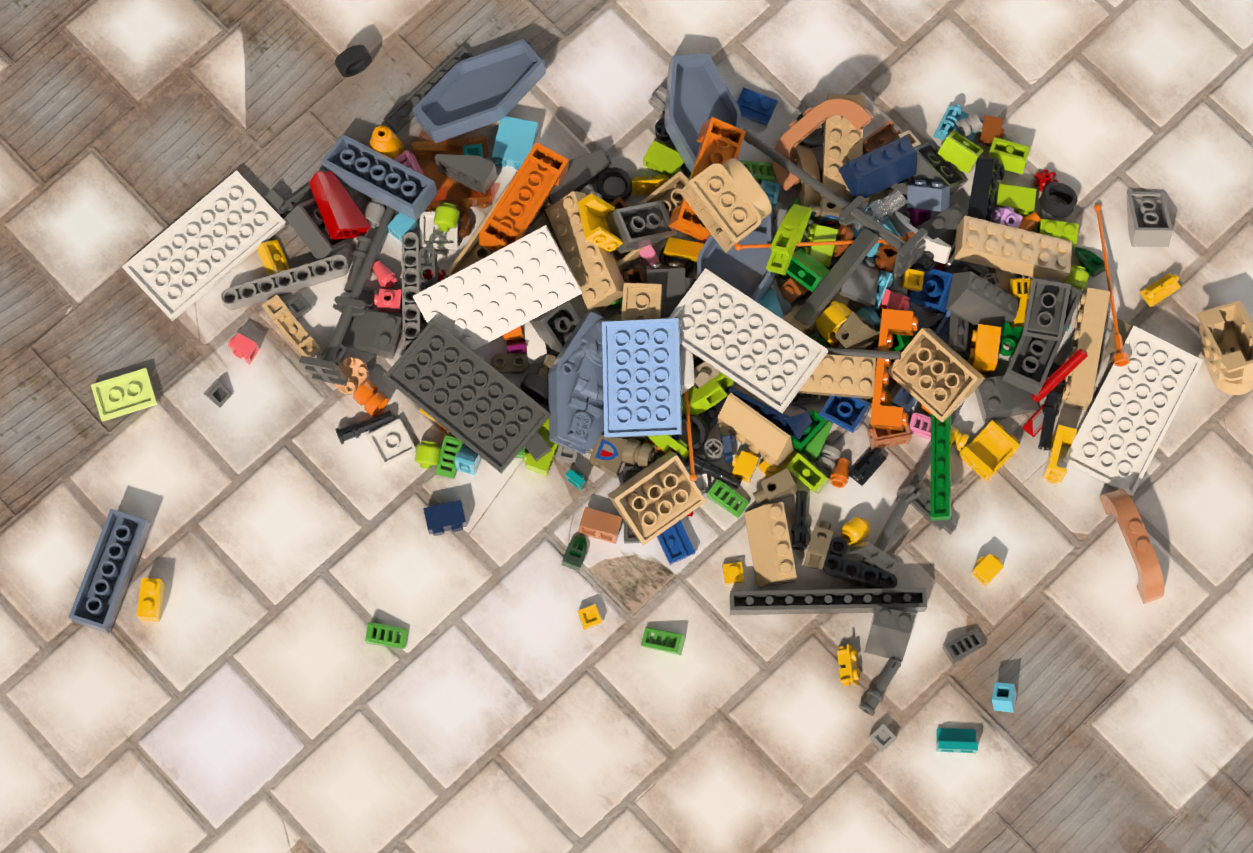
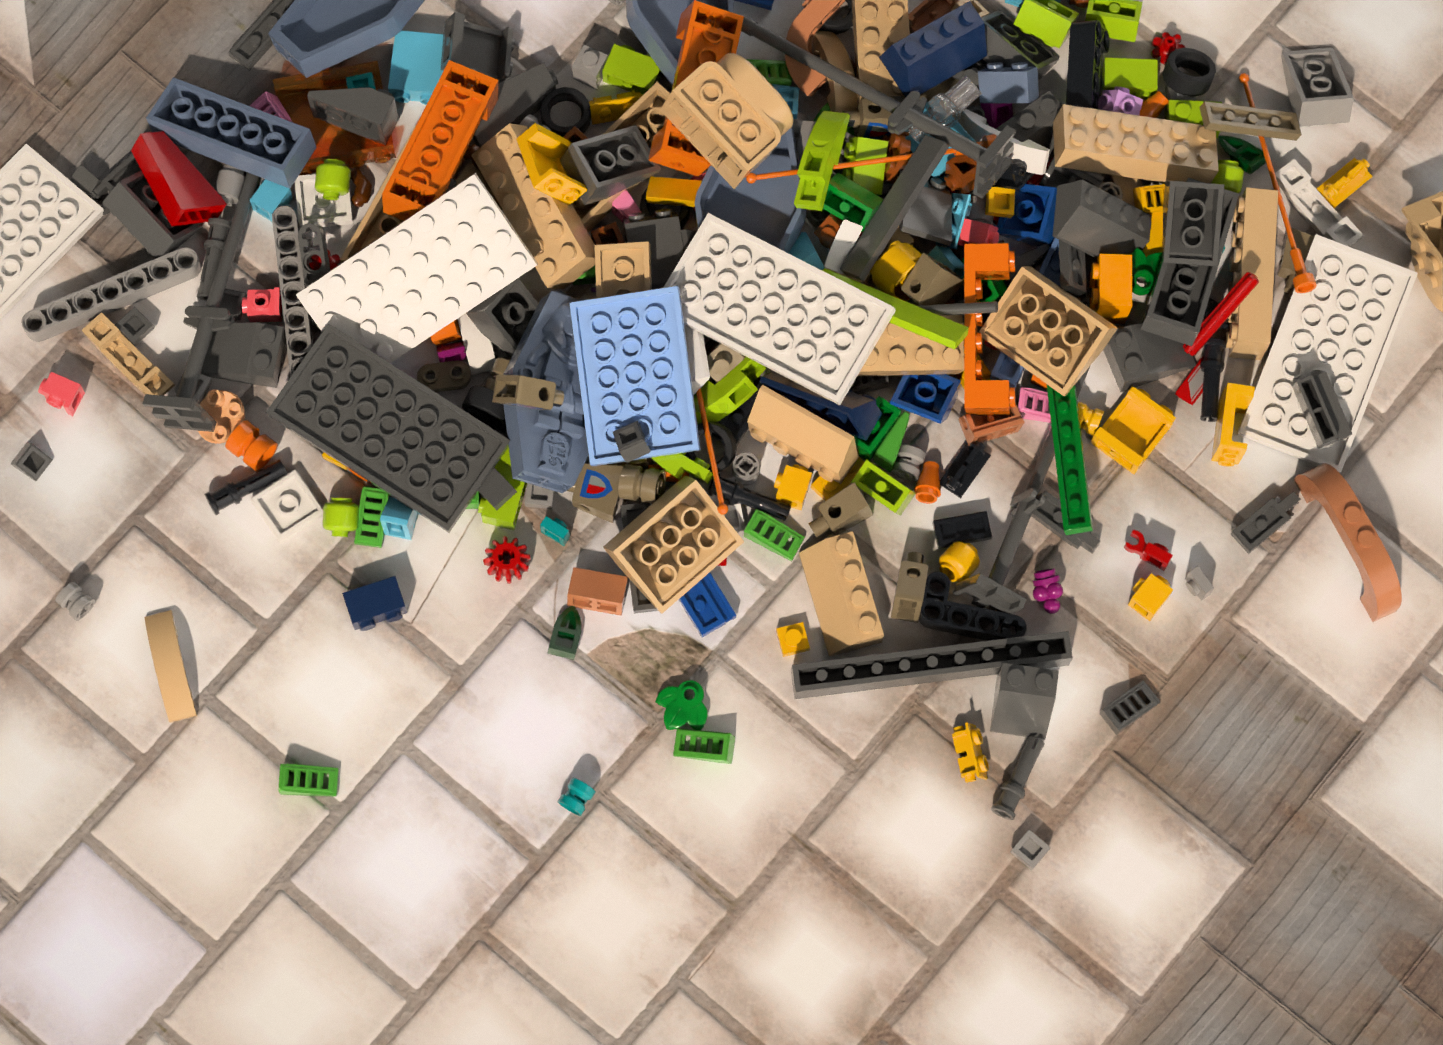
camera: 10 degrees left, 0 degrees up
(238, 494) = (75, 601): none -> light grey wheel
(272, 257) = (90, 260): yellow slope -> none
(299, 546) = (169, 666): none -> tan slope
(384, 275) = (252, 270): coral cone -> none
(386, 142) = (235, 82): light orange cone -> none
(532, 494) = (517, 559): none -> red gear
(557, 134) = (478, 47): none -> dark grey panel
(565, 382) = (527, 392): none -> dark tan torso
(570, 667) = (576, 796): none -> teal wheel
(589, 617) = (596, 722): yellow plate -> none
(634, 154) = (589, 66): none -> light grey brick
(634, 423) = (631, 442): none -> dark grey slope
(649, 613) = (682, 710): none -> green plate
(662, 136) = (623, 37): black wheel -> none
(726, 439) = (764, 451): dark blue plate -> none
(797, 300) = (842, 245): none -> white sticker
(799, 529) = (880, 568): black pin -> none
(838, 355) = (915, 318): none -> lime tile
(861, 508) = (962, 528): none -> black plate
(915, 557) = (1048, 589): none -> magenta piece
(956, 740) = (1134, 842): teal panel -> none
(994, 539) = (1152, 553): none -> red plate
(1004, 697) = (1195, 773): medium azure brick -> none
(1022, 564) = (1198, 583): none -> light grey plate
(1075, 525) = (1265, 522): none -> dark grey hinge
(1097, 239) = (1250, 121): none -> dark tan plate
(1123, 450) = (1322, 409): none -> dark grey piece
(1137, 305) = (1314, 207): none -> white slope

